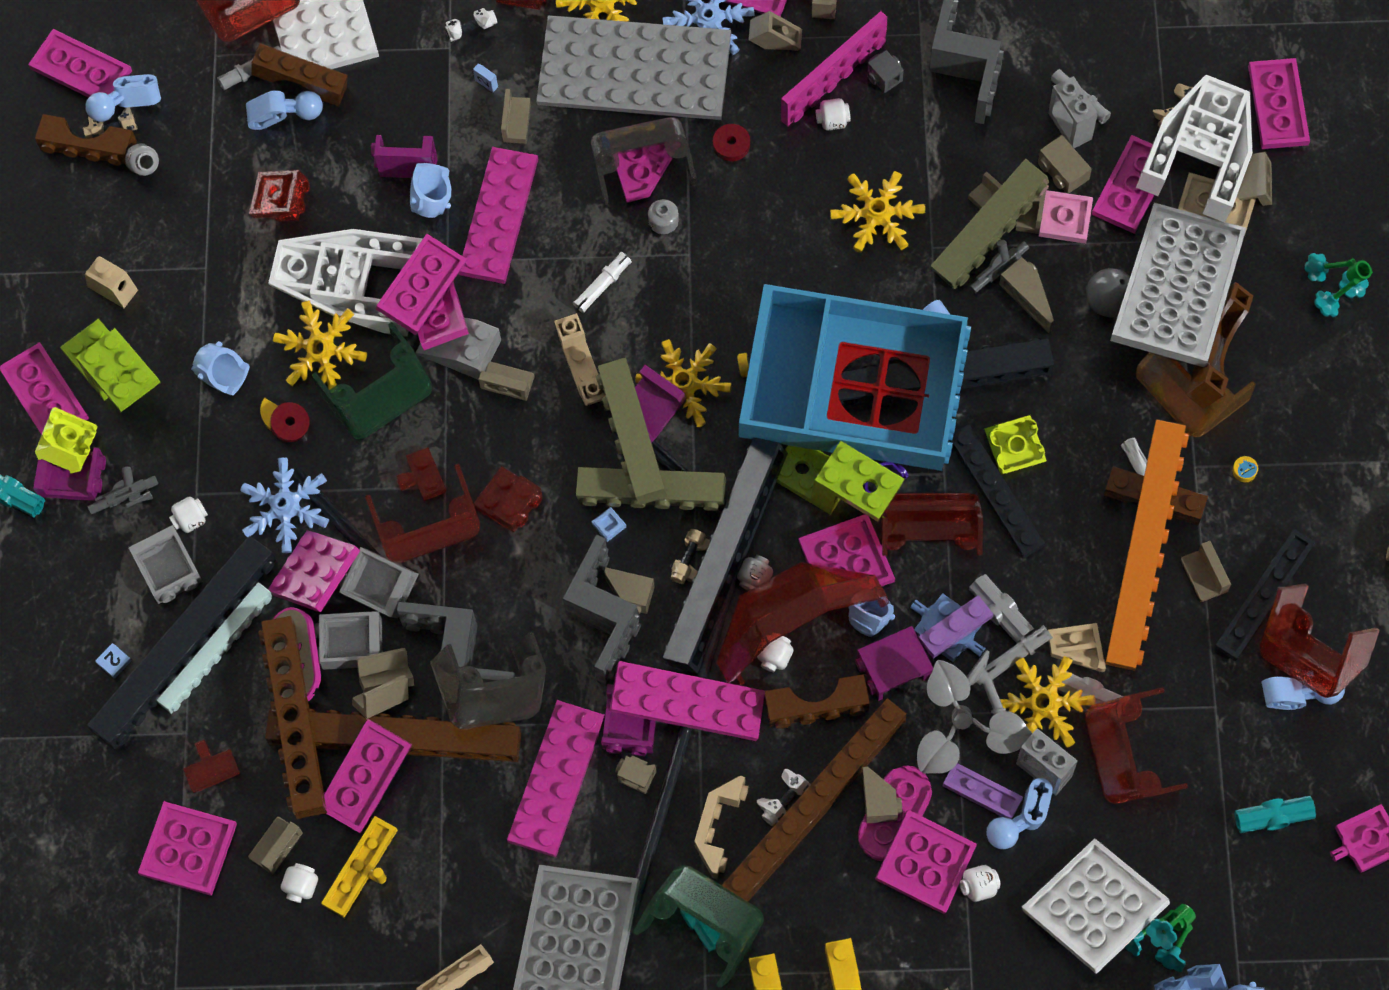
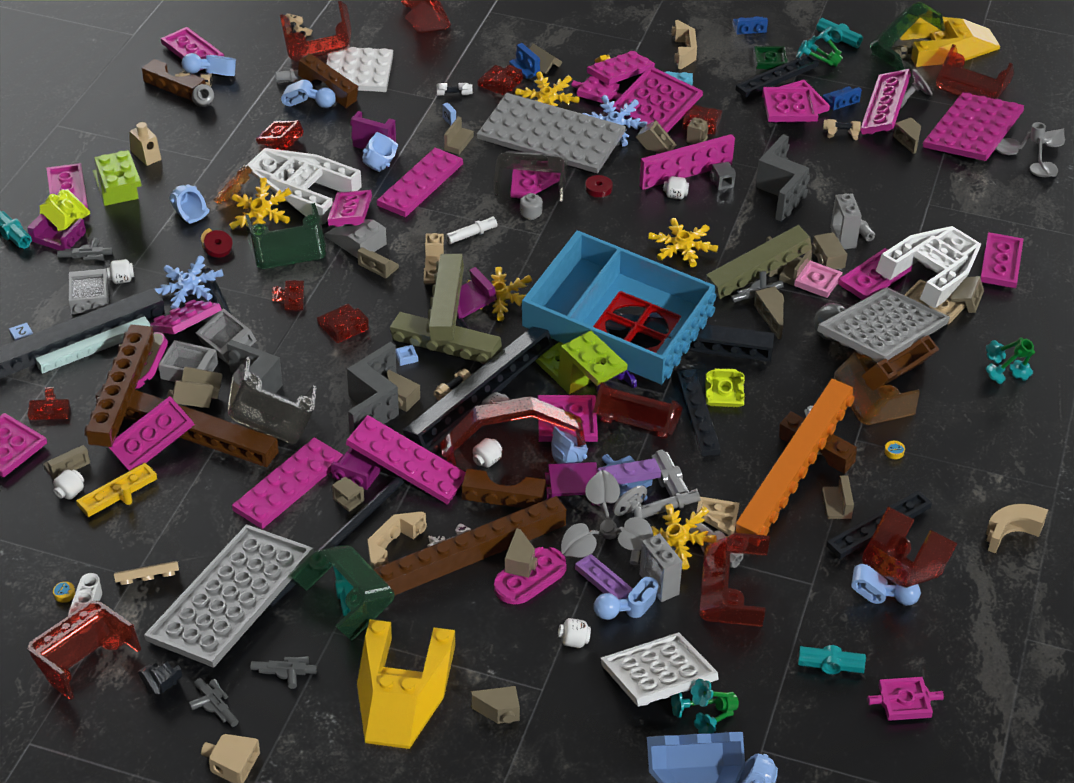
camera: 15 degrees right, 25 degrees down
(263, 315) = (233, 185): none -> clear orange plate
(421, 284) = (345, 189): dark pink plate -> none
(460, 527) = (277, 316): clear red windscreen -> none
(926, 862) = (537, 606): dark pink plate -> none

